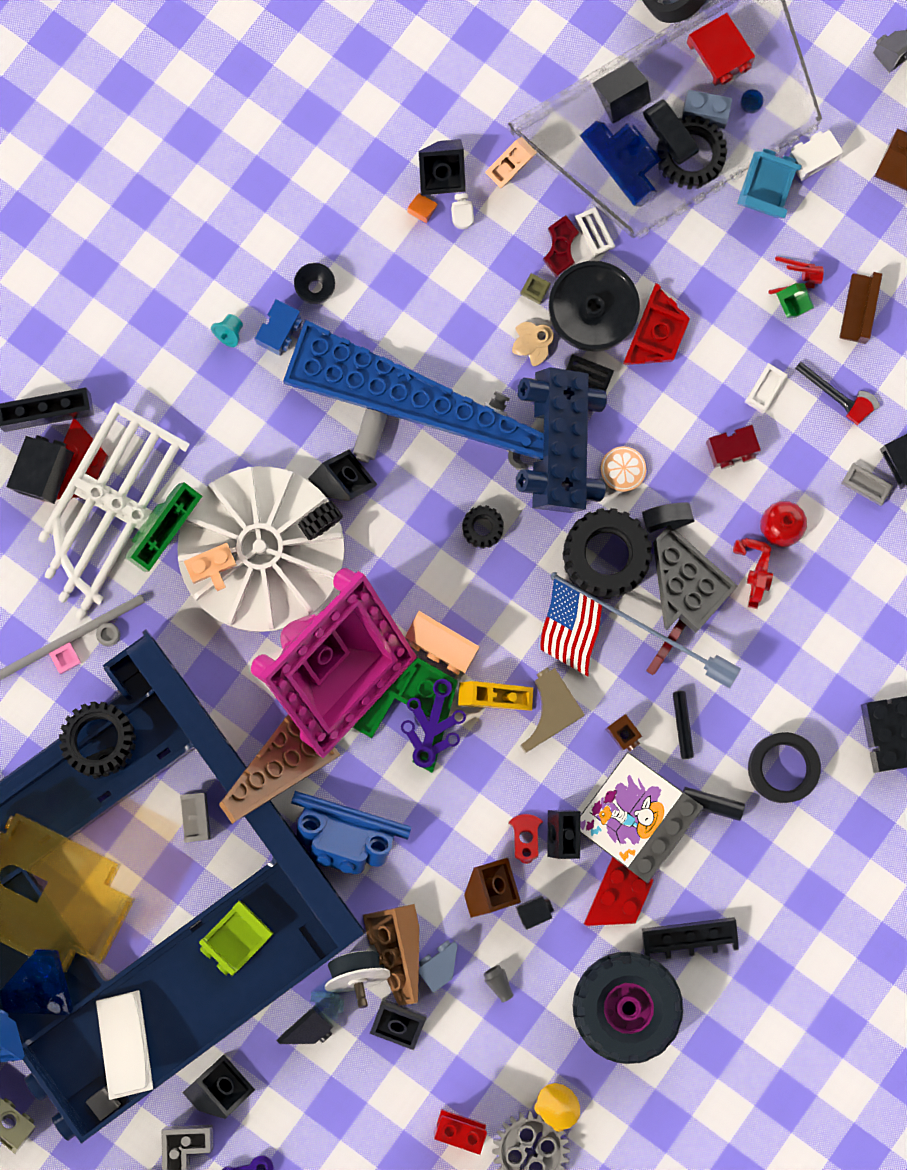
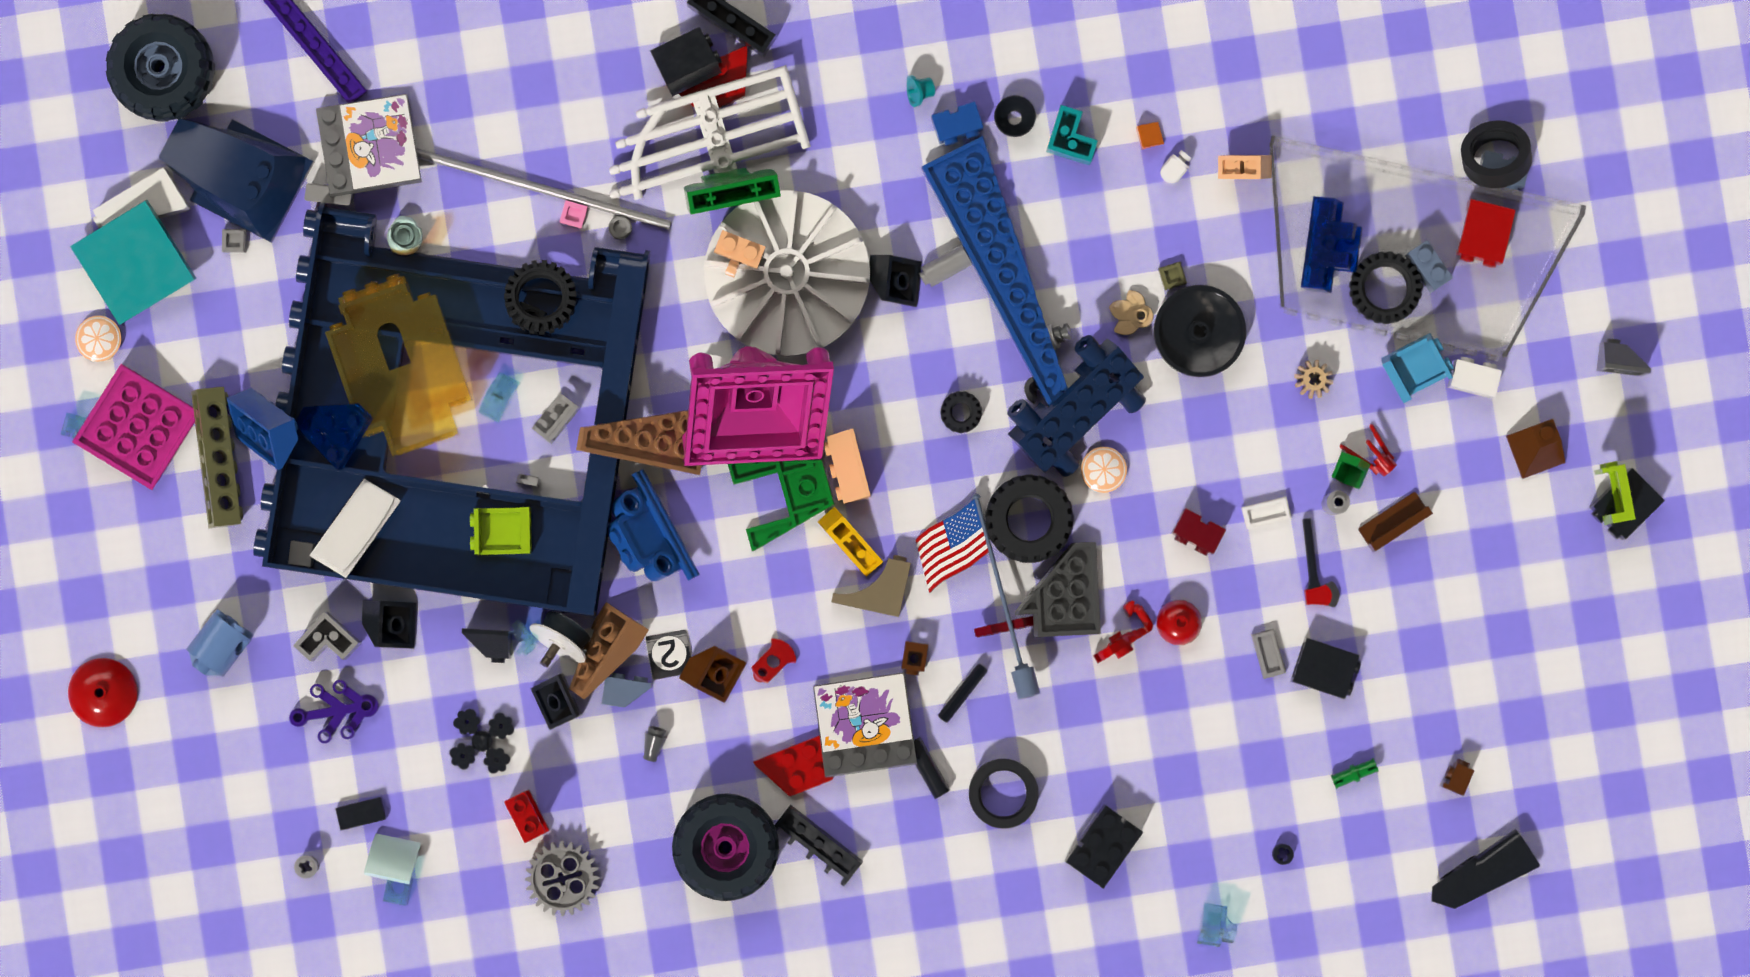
camera: 45 degrees right, 5 degrees up
(138, 843) = (498, 397): none -> clear light blue slope
(219, 882) = (528, 480): none -> light grey tile
(320, 520) = (845, 296): black tyre -> none
(369, 265) = (1065, 141): none -> teal brick
(372, 1108) = (481, 741): none -> black plant
(432, 727) = (783, 518): dark purple plant -> none
(442, 167) = (1192, 120): black slope -> none
(445, 907) = (668, 653): none -> sticker
(535, 911) = (726, 718): black brick -> none
(558, 1106) = (610, 867): yellow dish -> none
(562, 236) = (1213, 269): dark red tile -> none
(563, 834) = (801, 685): black brick -> none
(590, 364) = (1142, 383): black tile -> none
(602, 249) = (1251, 295): white tile -> none
(623, 91) = (1380, 193): black slope -> none
(658, 331) = (1229, 394): red wing -> none
(670, 514) = (1103, 536): black slope -> none
(671, 131) = (1382, 259): black beam -> none
(711, 258) = (1321, 379): none -> tan gear
(751, 101) = (1470, 292): clear blue tile -> none
(808, 331) = (1329, 506): none -> light grey brick

